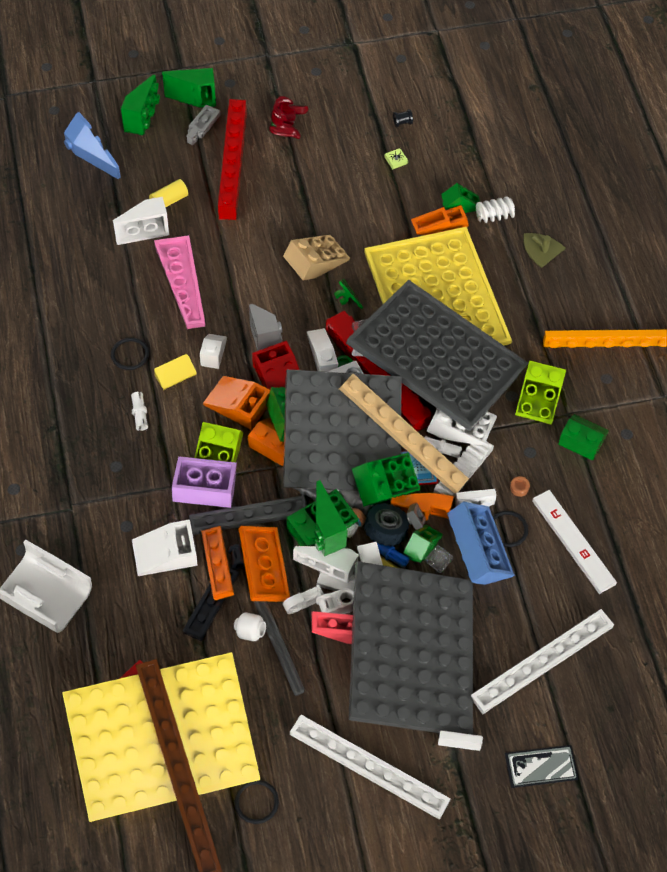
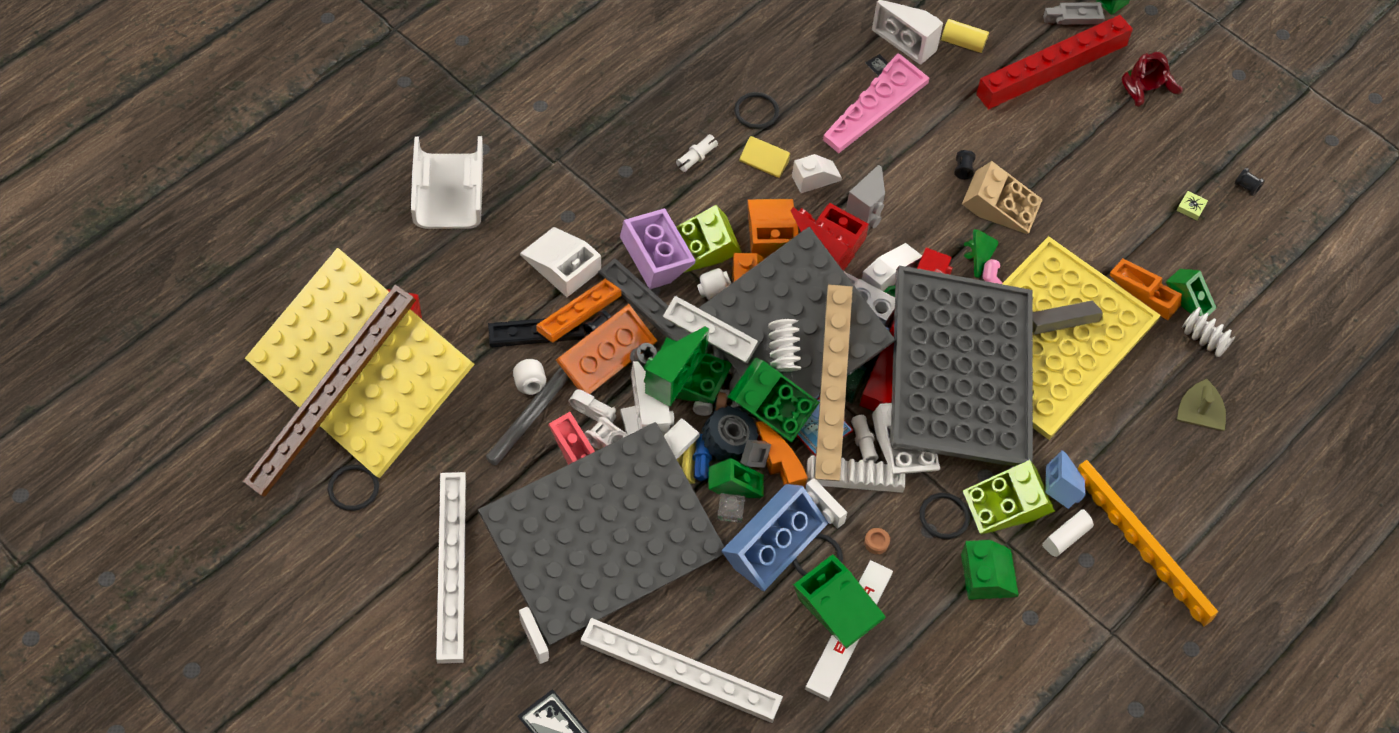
camera: 55 degrees right, 0 degrees up
(149, 258) = (877, 64): none -> black sticker
(259, 464) = (713, 283): none -> white head
(273, 259) = (964, 164): none -> black bush
(277, 374) = (836, 246): none -> red slope
(285, 543) = (649, 352): none -> dark grey bush
(306, 484) = (720, 334): none -> white gear
(360, 444) = (783, 345): none -> white piece
(367, 299) = (990, 271): none -> bright pink arm
(434, 273) = (1066, 317): none -> dark grey slope
(522, 450) = (935, 533): none -> black piece
(549, 352) = (1064, 481): none -> medium blue slope
(557, 533) = (838, 601): none -> green slope
(585, 375) = (1068, 533): none -> white brick

